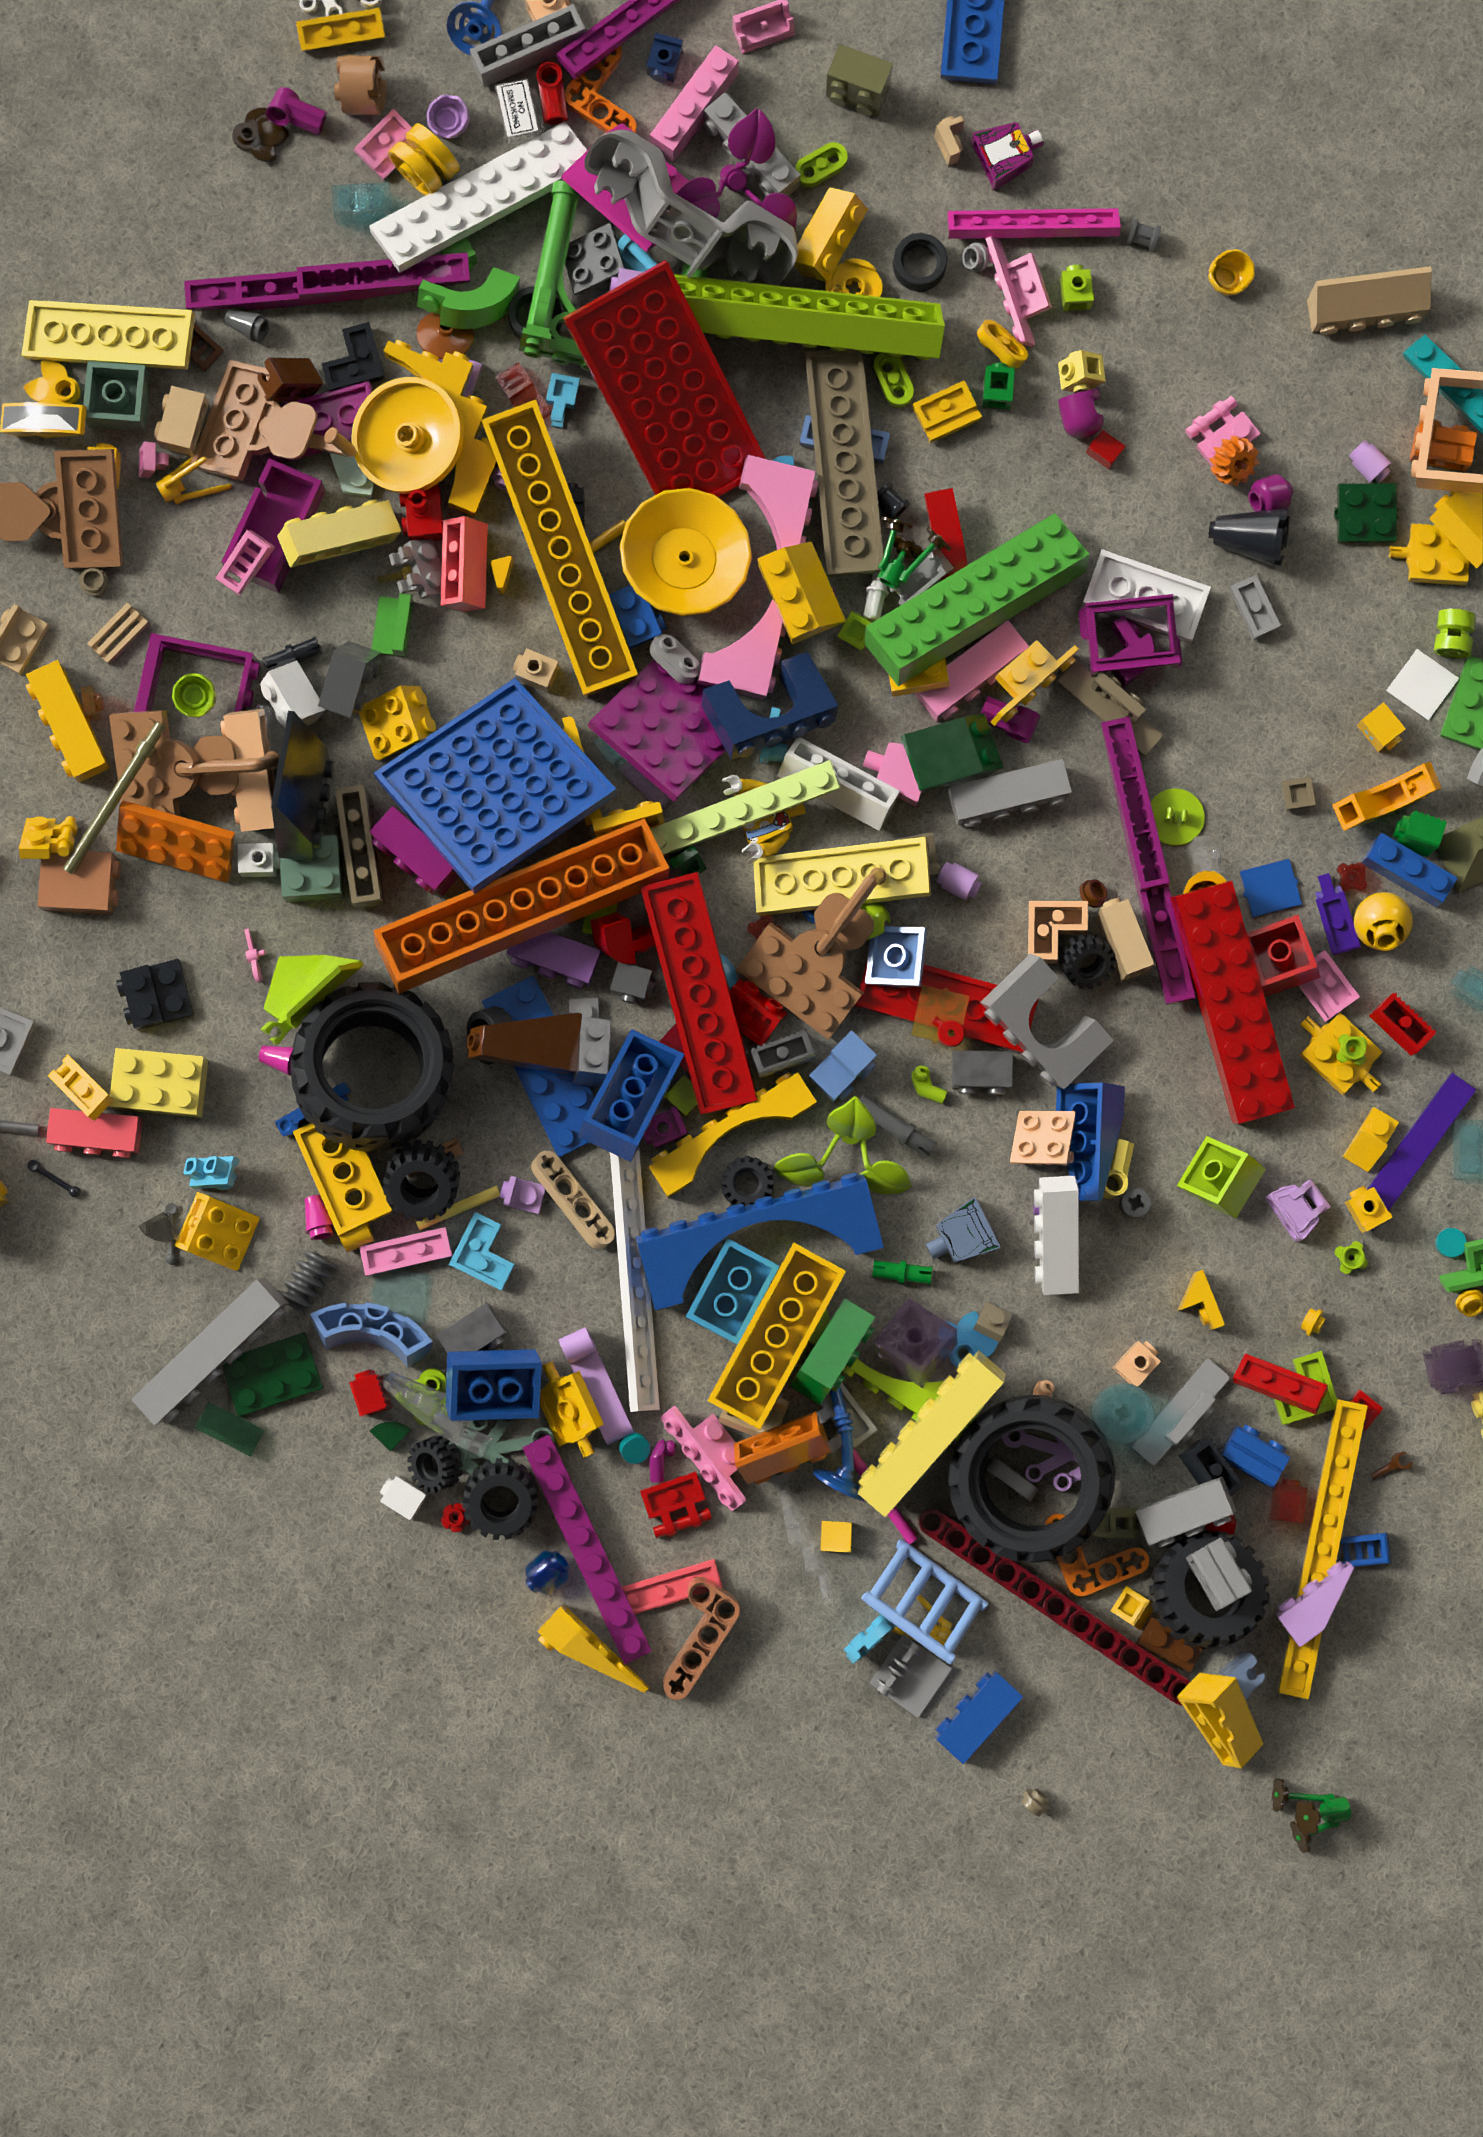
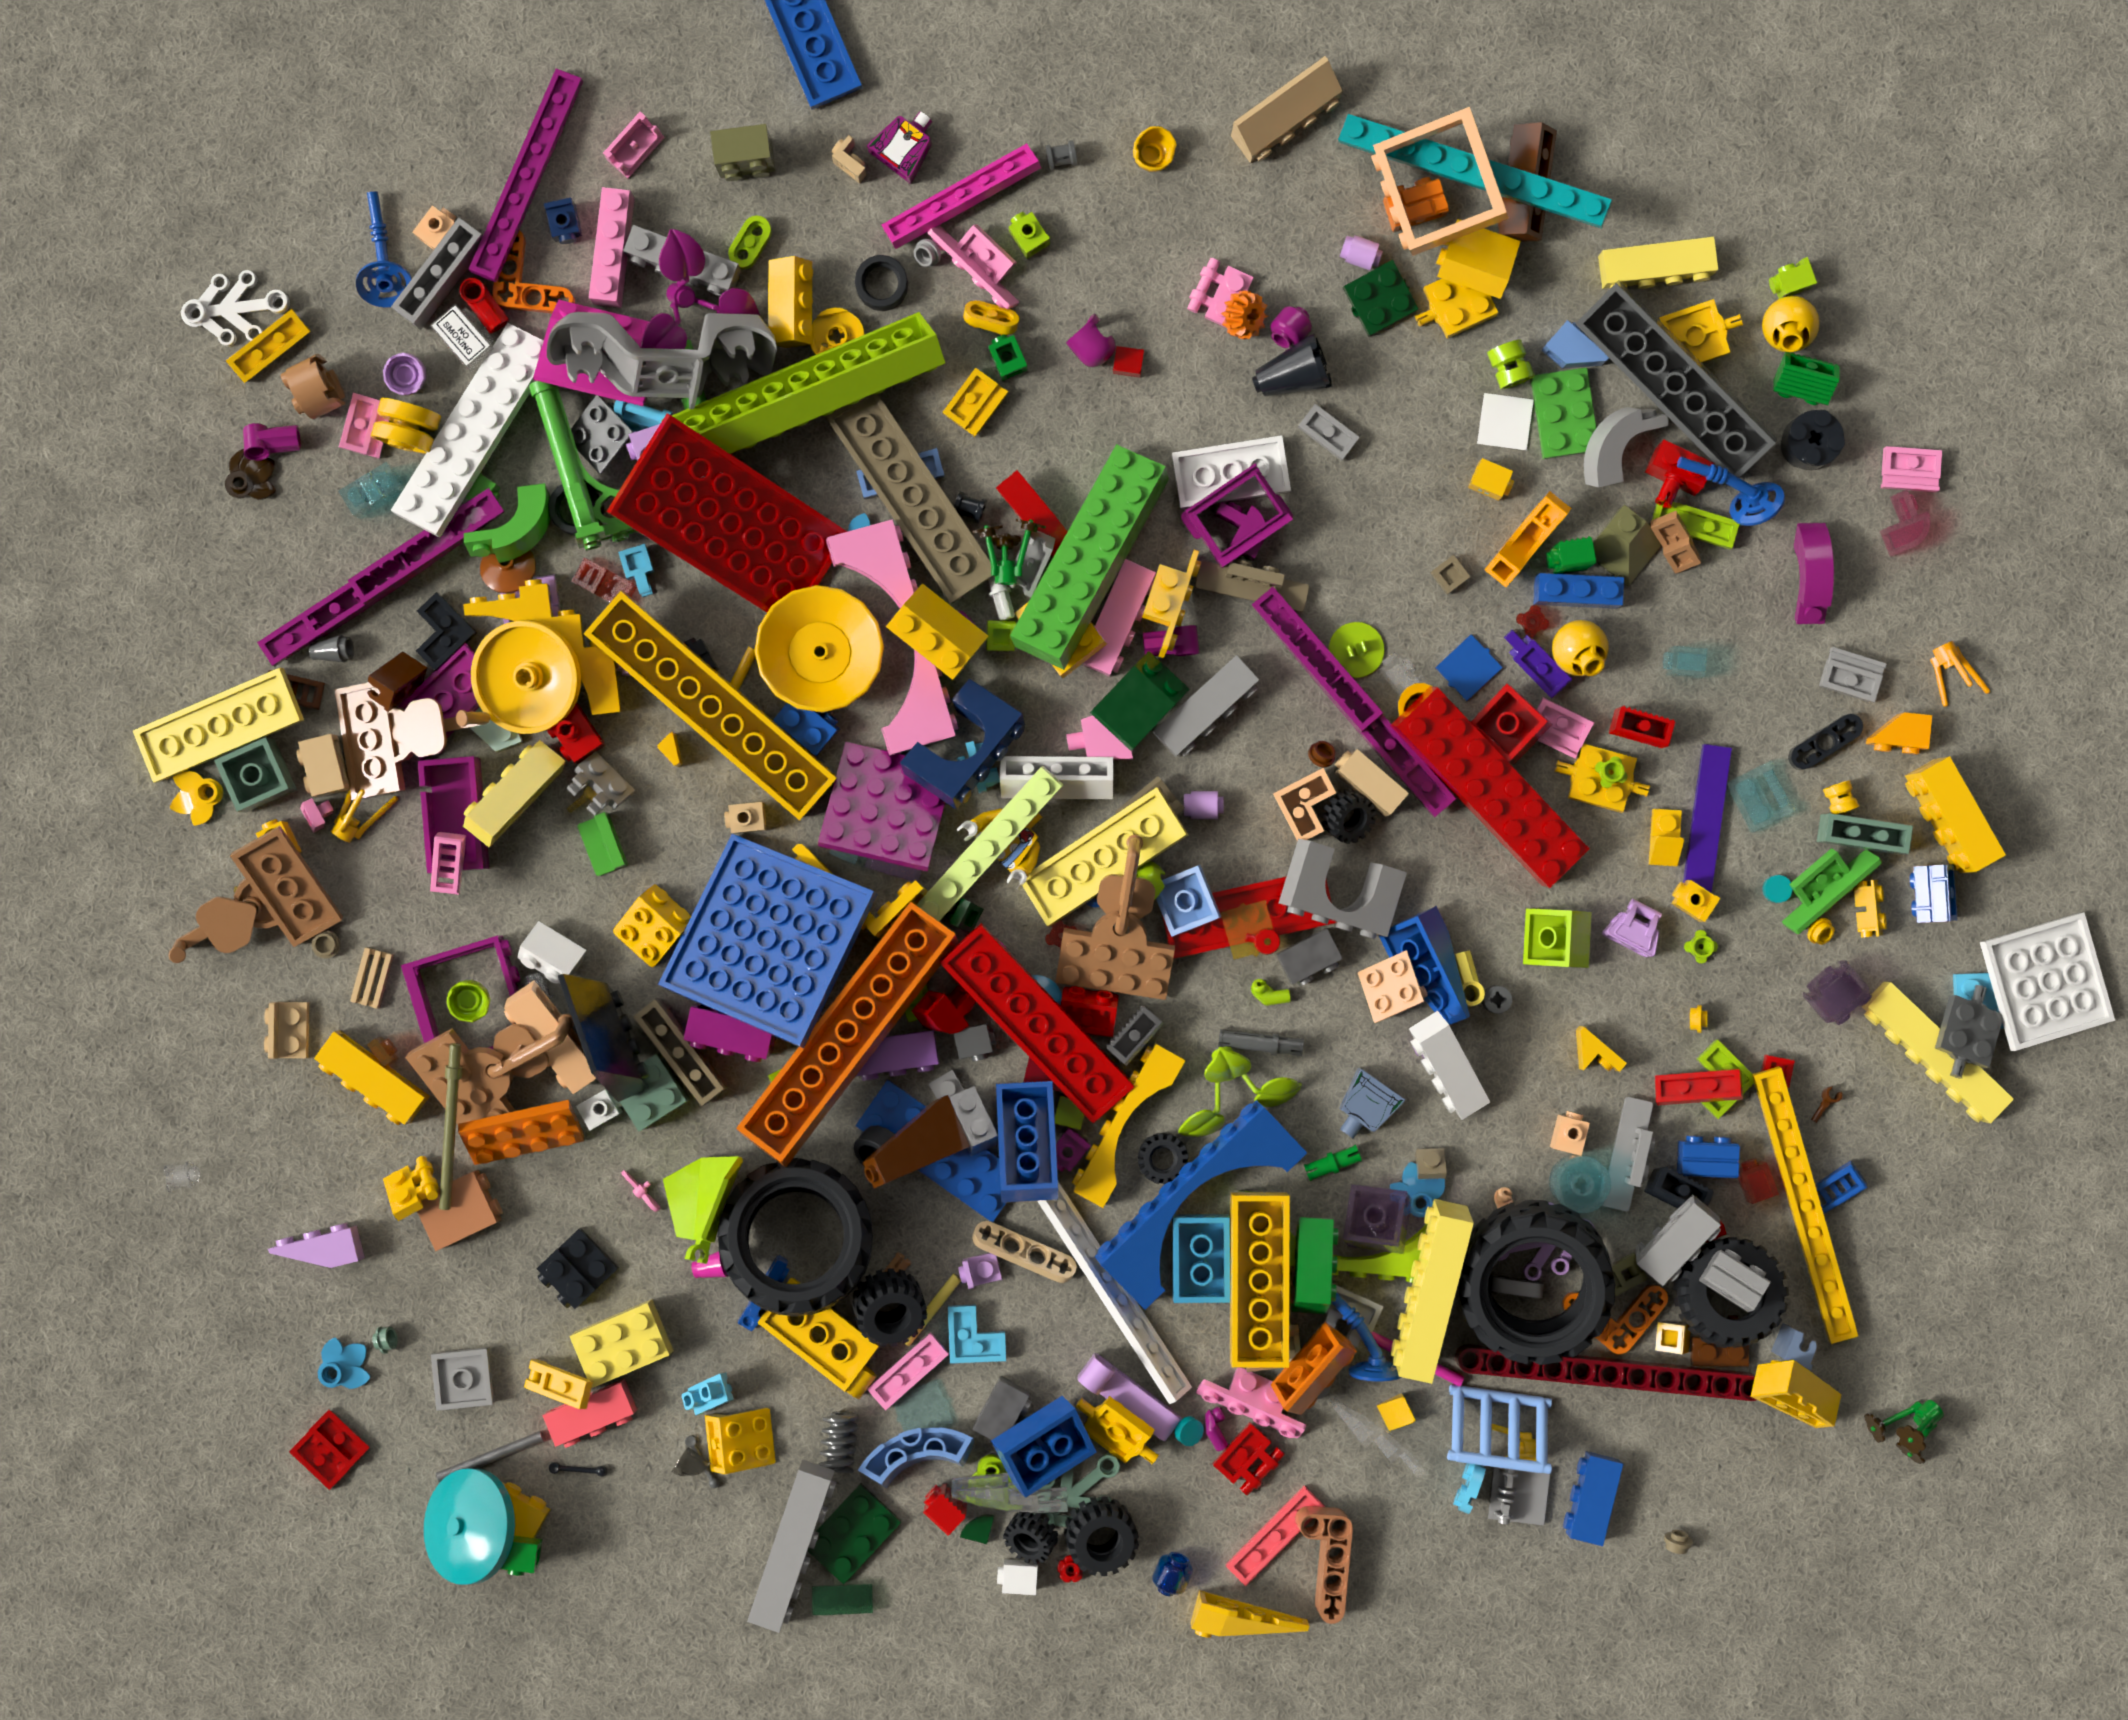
camera: 25 degrees left, 5 degrees up
(43, 419) = (204, 830): slope -> none
(293, 653) = (531, 916): black pin -> none
(317, 1218) = (818, 1385): dark pink cone -> none
(347, 675) = (589, 911): dark grey brick -> none
(464, 564) = (635, 760): coral brick -> none
(587, 1549) = (1195, 1537): magenta plate -> none
(675, 658) = (859, 745): light grey plate -> none
(846, 1063) = (1190, 1018): medium blue brick -> none
(894, 380) = (914, 400): lime plate -> none
(1081, 371) = (1072, 307): light yellow brick -> none
(1313, 1609) = (1824, 1264): lavender slope -> none

